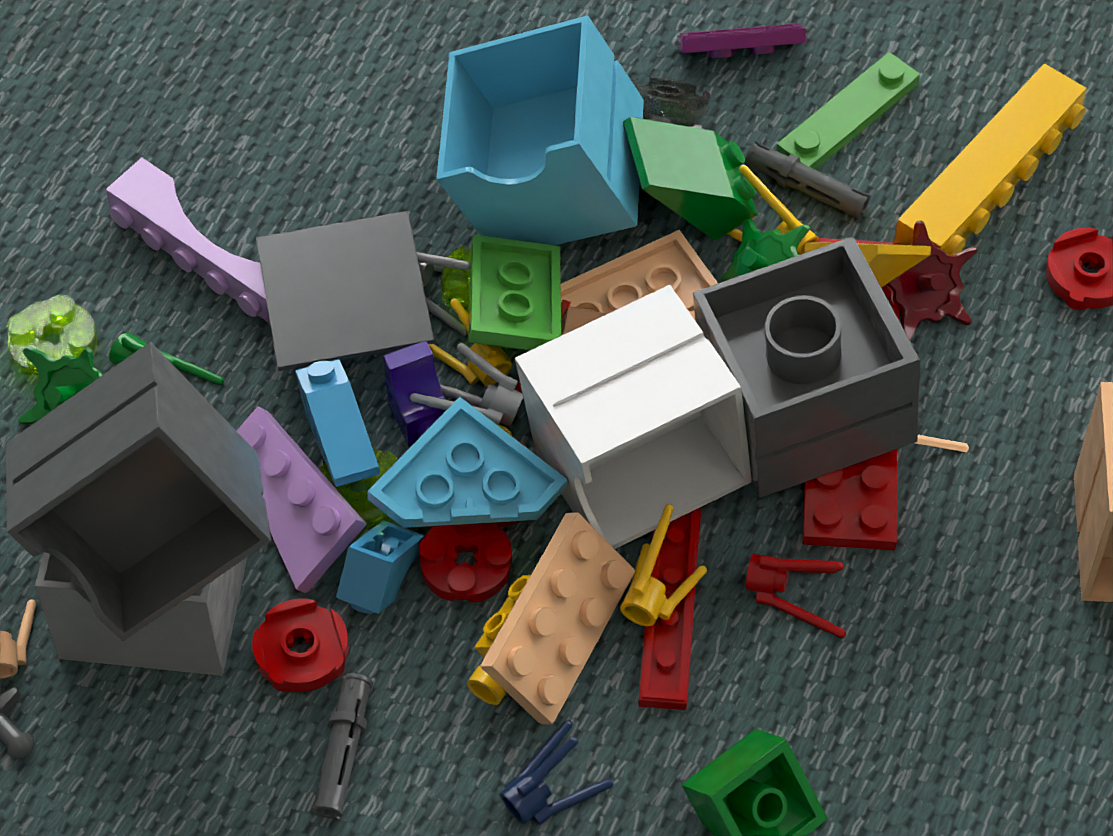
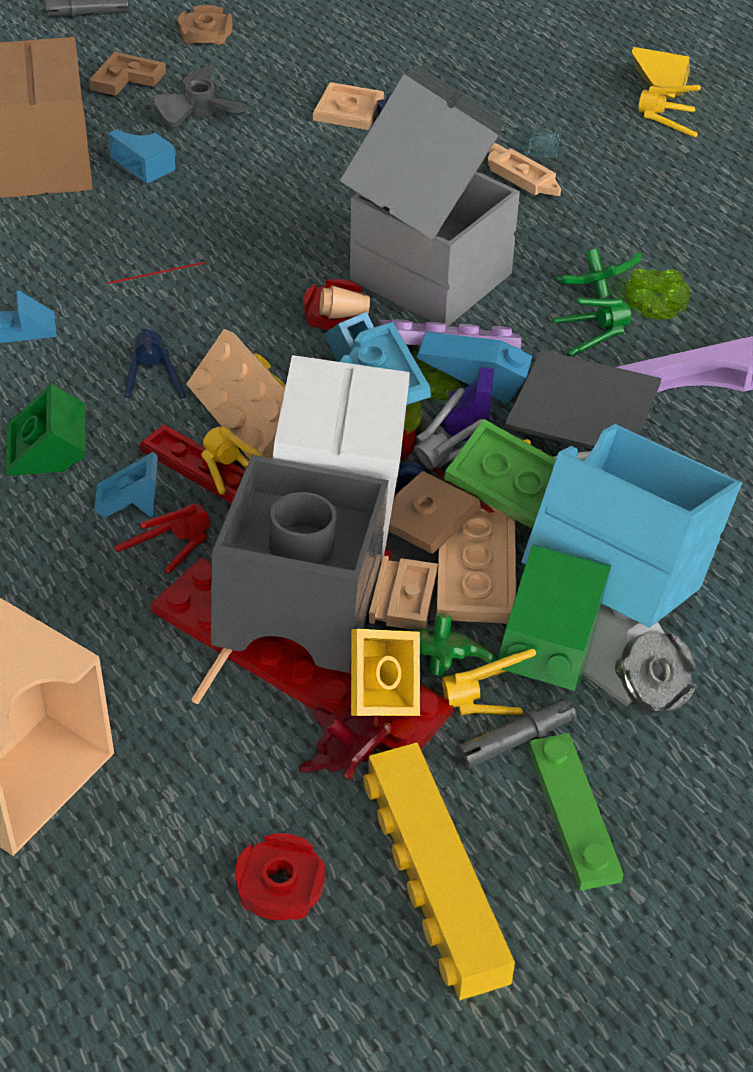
camera: 120 degrees right, 10 degrees down
(324, 610) = (342, 303): none -> light nougat cone
(346, 727) = (279, 310): dark grey pin -> none
(759, 39) = (703, 770): magenta plate -> none
(772, 645) = (130, 485): none -> dark azure slope

